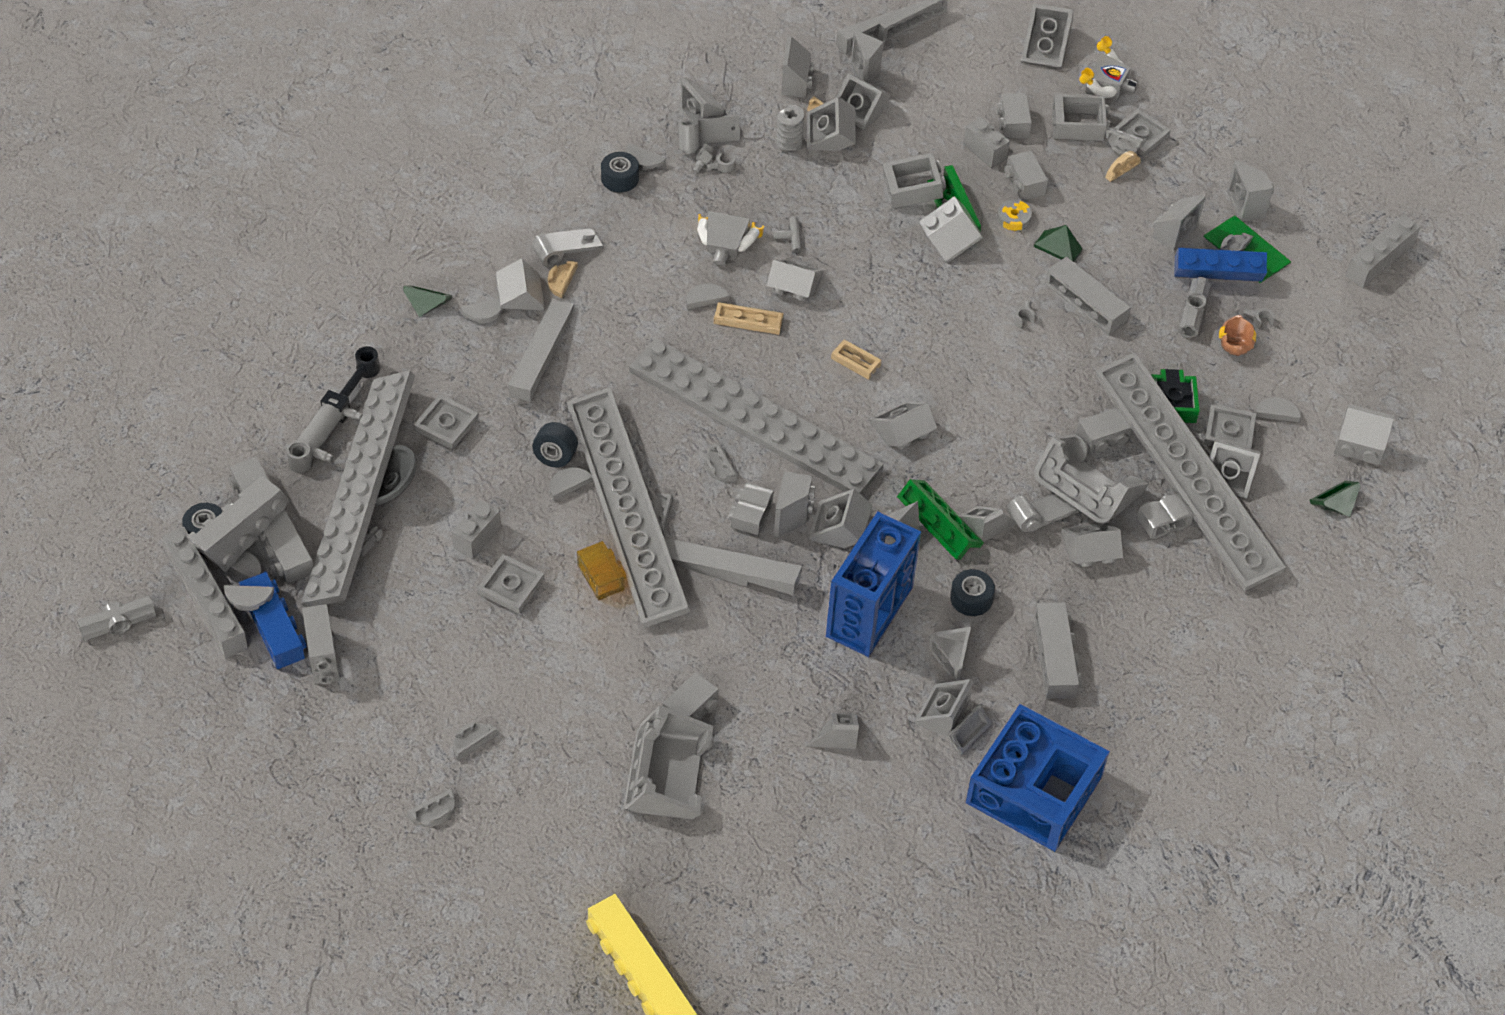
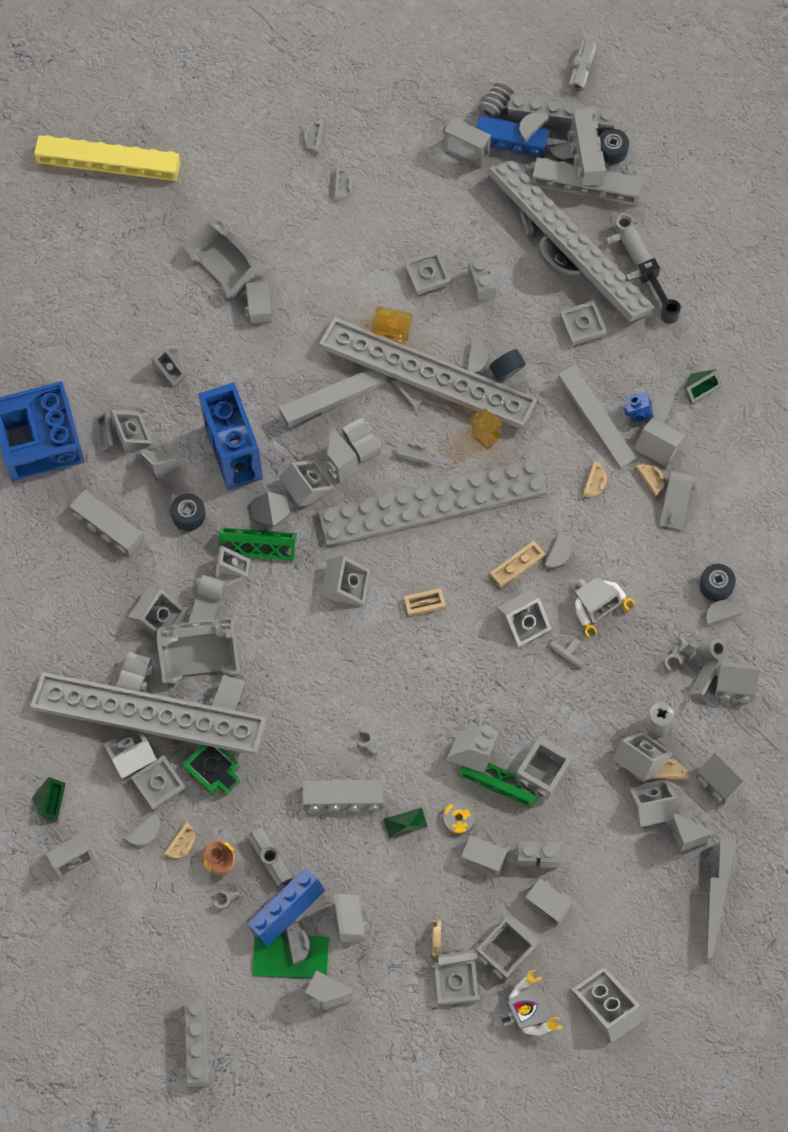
camera: 135 degrees right, 15 degrees up
(236, 662) = (495, 100): none -> light grey piece
(501, 319) = (638, 407): none -> blue brick
(606, 314) = (596, 481): none -> tan tile
(643, 411) = (486, 428): none -> clear yellow piece
(1254, 378) = (182, 844): none -> tan tile

